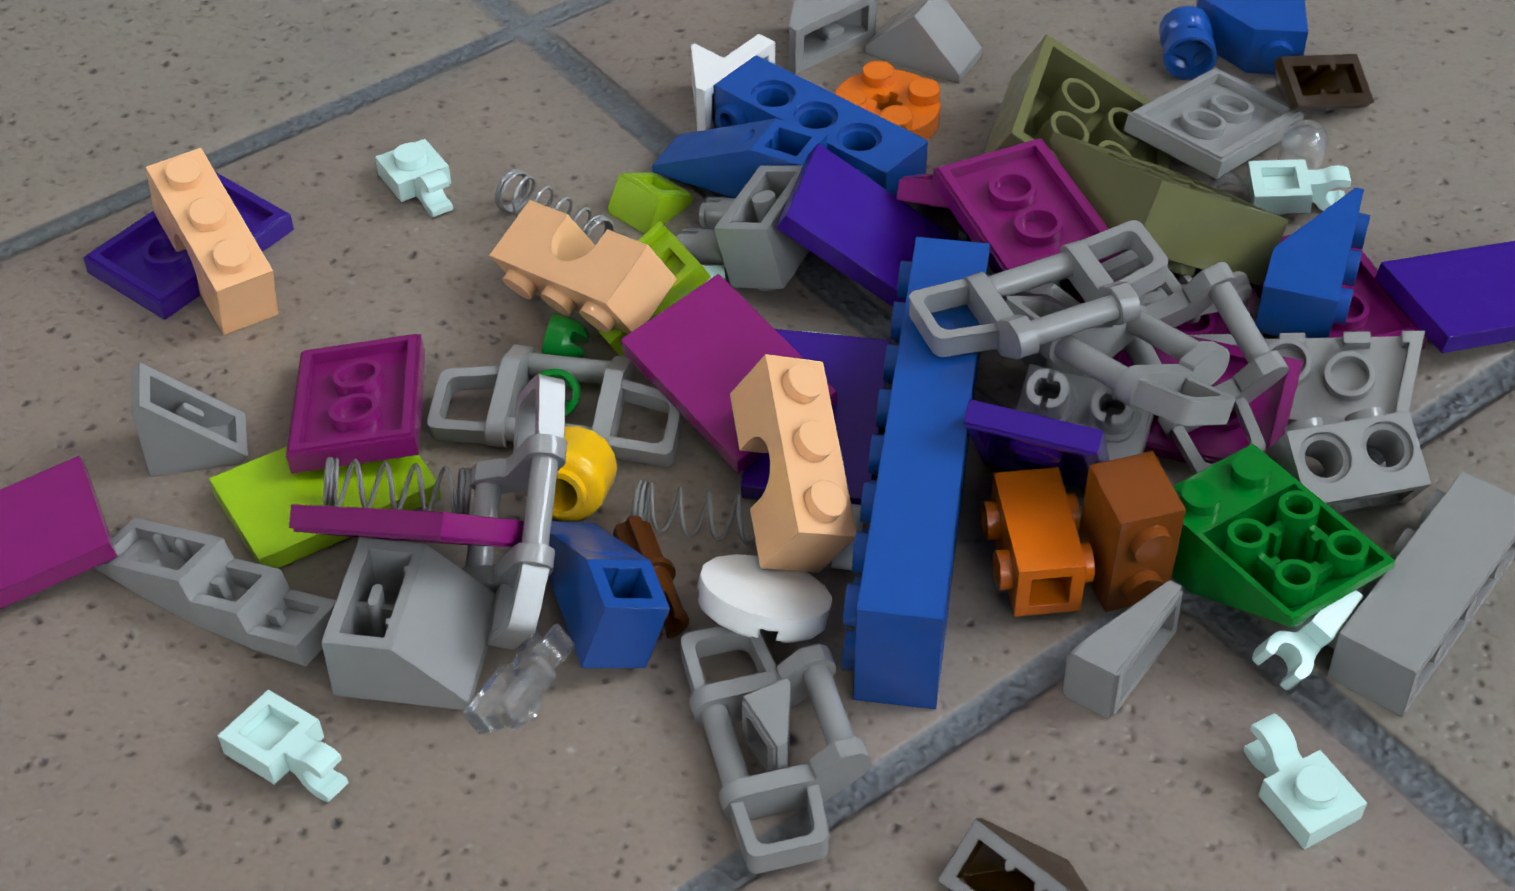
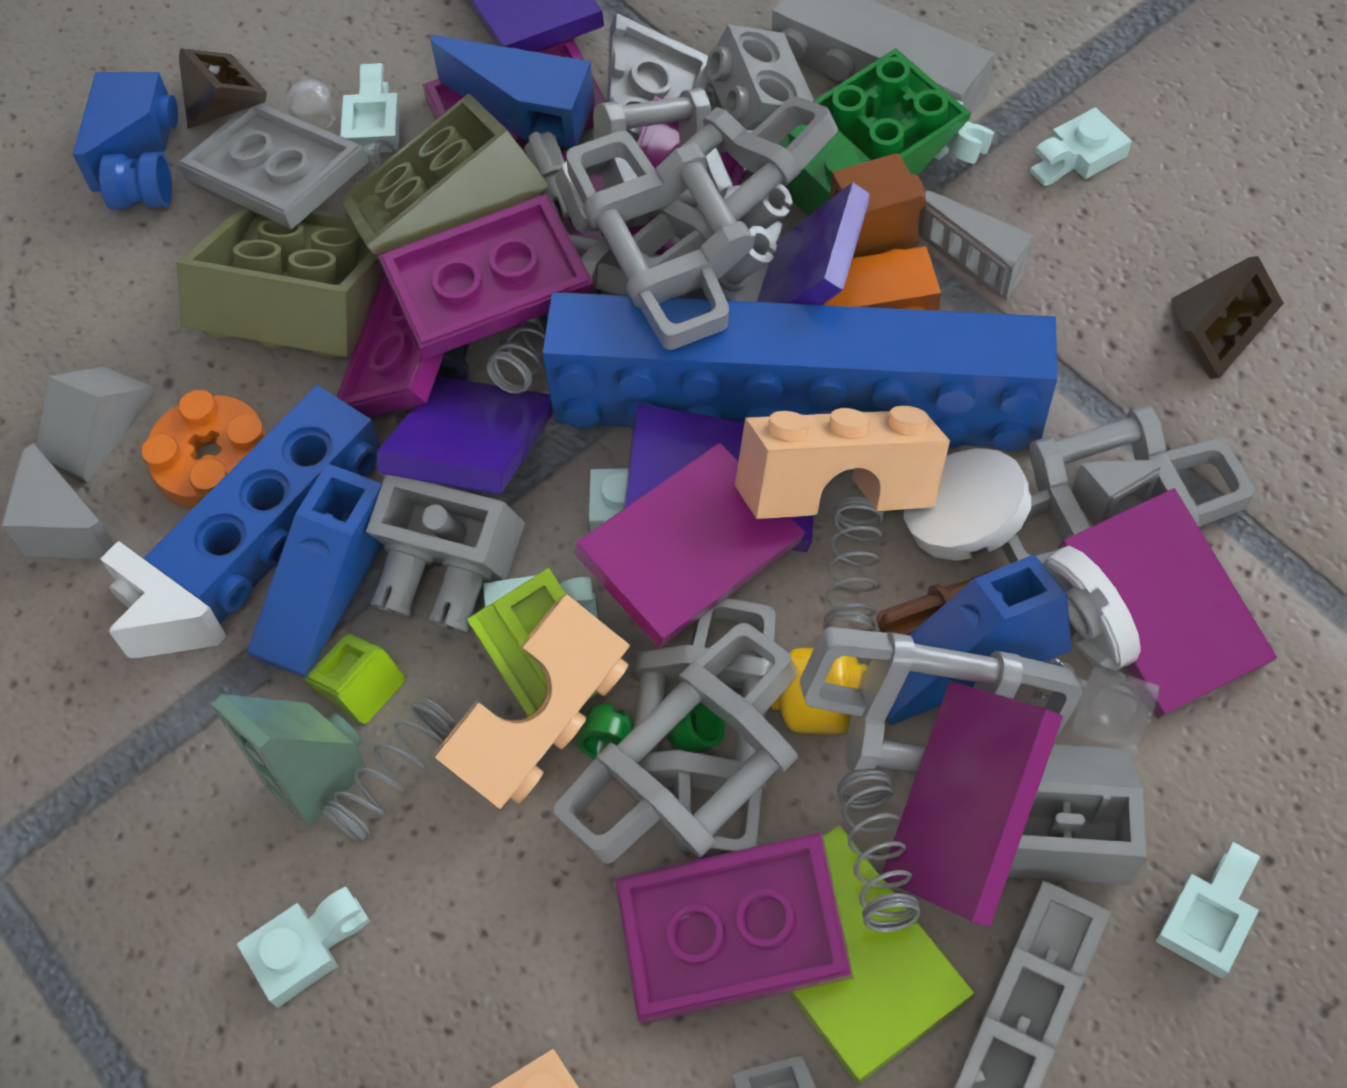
camera: 90 degrees left, 15 degrees up
(485, 321) = (656, 801): none -> light grey bar
(555, 123) = (294, 750): none -> sand green slope
(609, 660) = (1095, 609): none -> white tile
(625, 756) = (1180, 598): none -> magenta tile

